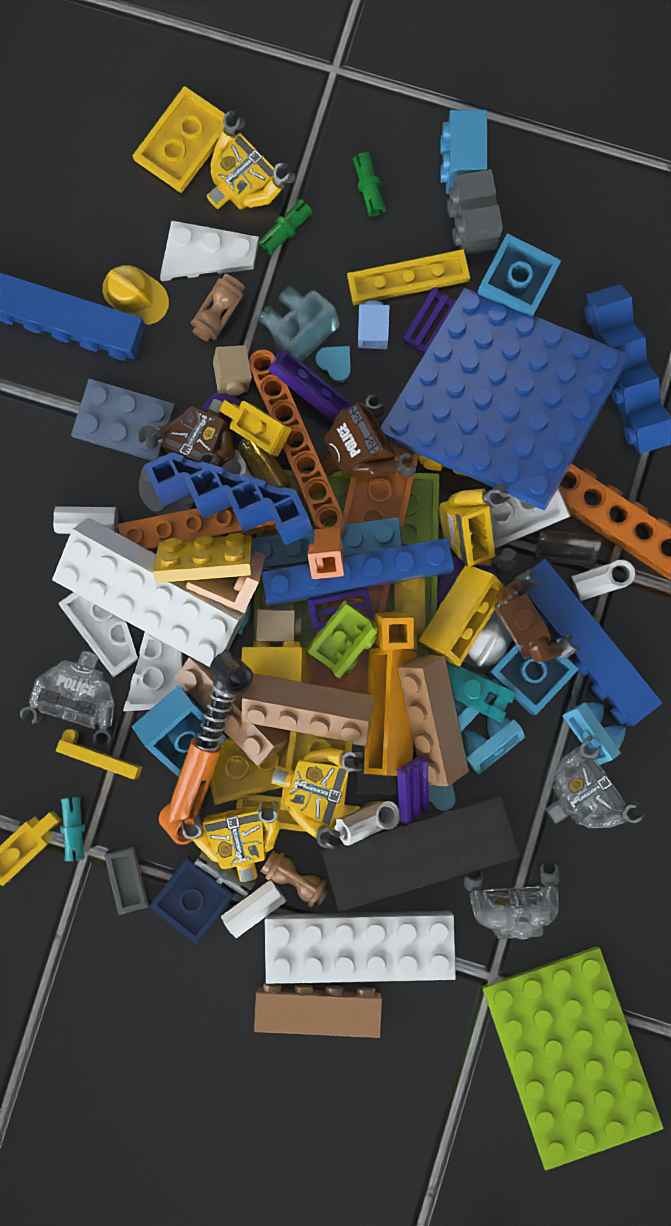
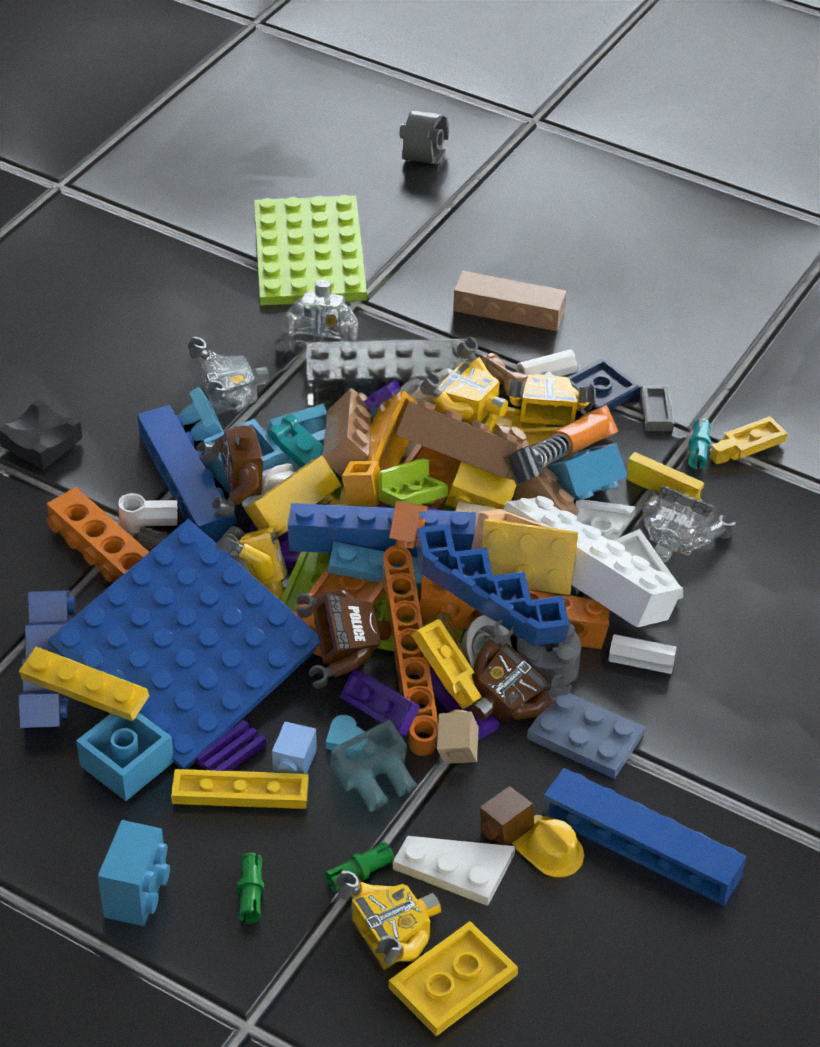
camera: 170 degrees left, 40 degrees down
(172, 299) = (506, 817): none -> reddish brown brick
(225, 296) = (446, 810): medium nougat piece -> none
(359, 946) = (501, 329): white brick -> none
(475, 212) = (149, 799): dark grey brick -> none
(577, 316) = (84, 683): none -> yellow plate

